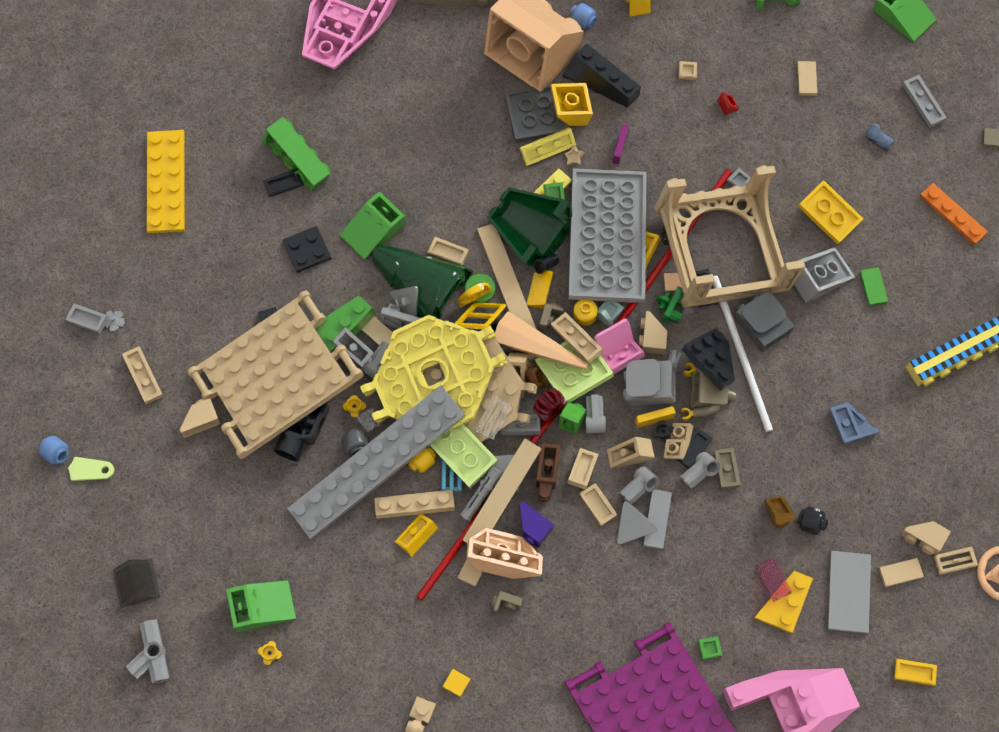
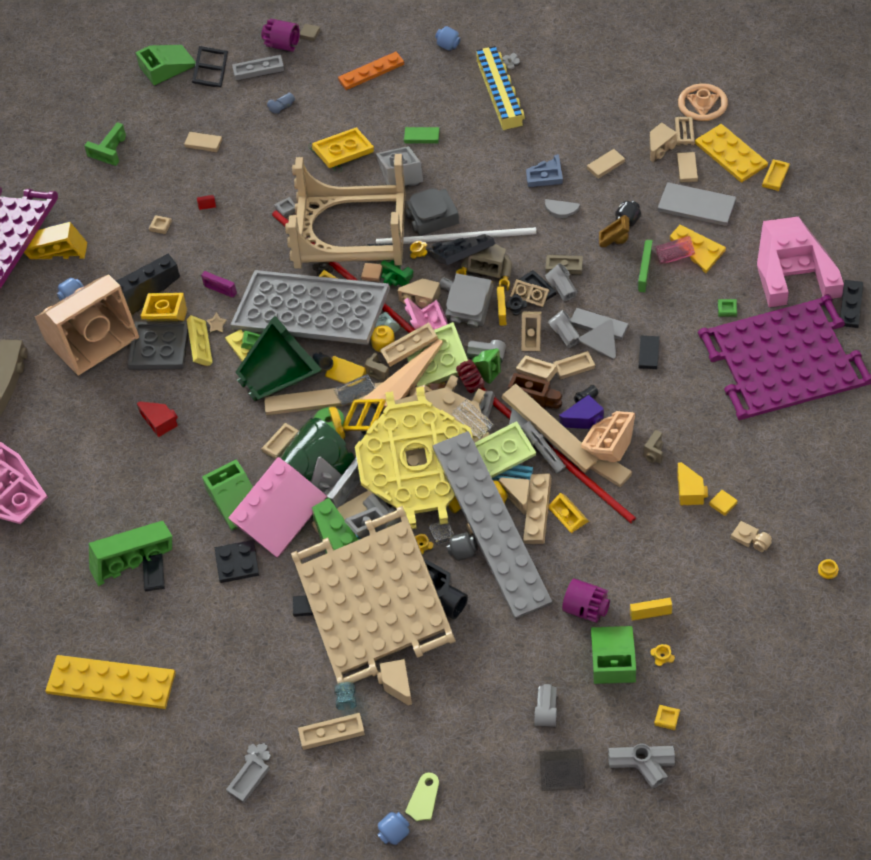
camera: 70 degrees left, 15 degrees down
(178, 378) = (345, 695): none -> clear light blue wheel
(189, 556) = (546, 707): none -> light grey piece
(203, 668) = (667, 717): none -> yellow tile
(310, 568) = (586, 600): none -> magenta gear
(315, 632) = (651, 609): none -> yellow tile
(360, 266) = (277, 507): none -> bright pink slope
(425, 481) = (517, 491): none -> tan slope
(448, 136) = (158, 417): none -> red slope
(466, 645) = (690, 486): none -> yellow slope
(518, 302) = (354, 389): none -> clear tile
(560, 523) = (592, 391): none -> black pin
(631, 576) = (648, 352): none -> black tile
(712, 315) = (418, 249): none -> yellow plate
(743, 551) = (642, 283): none -> bright green tile
(806, 450) = (561, 209): none -> light grey tile
(883, 484) = (605, 163): none -> tan tile
(911, 45) = (208, 66): none -> black window
(935, 617) = (731, 153): none -> yellow plate
(973, 110) = (280, 34): none -> magenta gear

